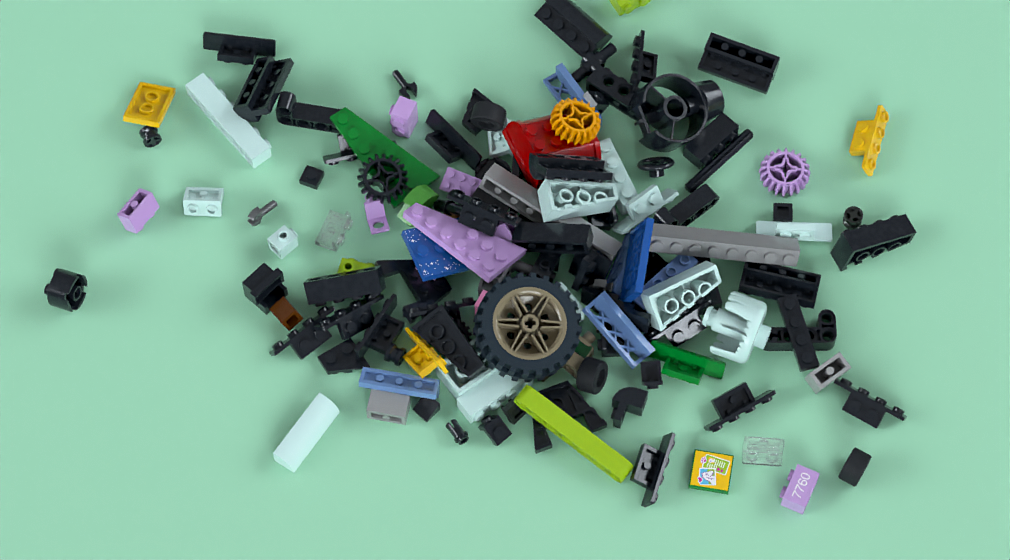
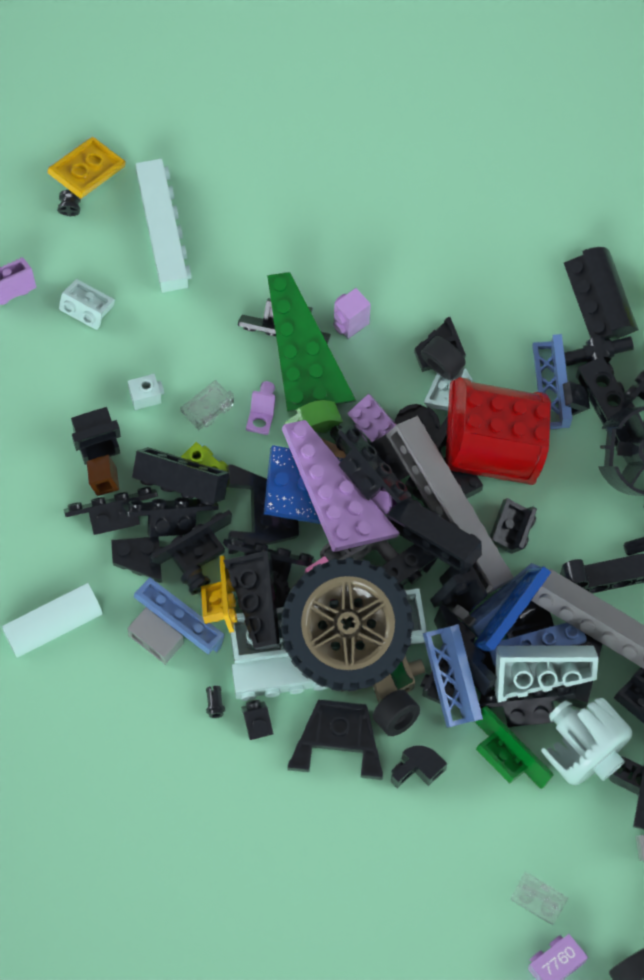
camera: 25 degrees right, 5 degrees up
(238, 48) = (216, 148): black bracket -> none
(257, 213) = (133, 347): dark grey bar -> none
(262, 88) = (215, 206): black brick -> none
(304, 115) = (244, 257): black beam -> none
(311, 177) = (217, 333): black plate -> none
(374, 181) = (297, 376): black gear -> none
(403, 91) = (375, 276): black bar -> none
(426, 408) = (196, 659): black slope -> none
(449, 142) = (387, 367): black bracket -> none
(512, 411) = (290, 708): pearl dark grey tile -> none
(568, 167) = (494, 462): black brick -> none
(572, 126) = (523, 416): light orange gear -> none
(573, 433) = (338, 770): lime beam -> none
(575, 198) = (484, 501): light aqua wedge -> none
(620, 177) = (551, 497): light aqua brick -> none
(643, 205) = (561, 545): light aqua bracket -> none
(650, 468) = (403, 851): black bracket -> none
(651, 374) = (464, 744): black bracket -> none
(655, 165) = (602, 504): black piece -> none
(711, 471) = (470, 890): tile -> none
(734, 402) = (539, 825): black bracket -> none

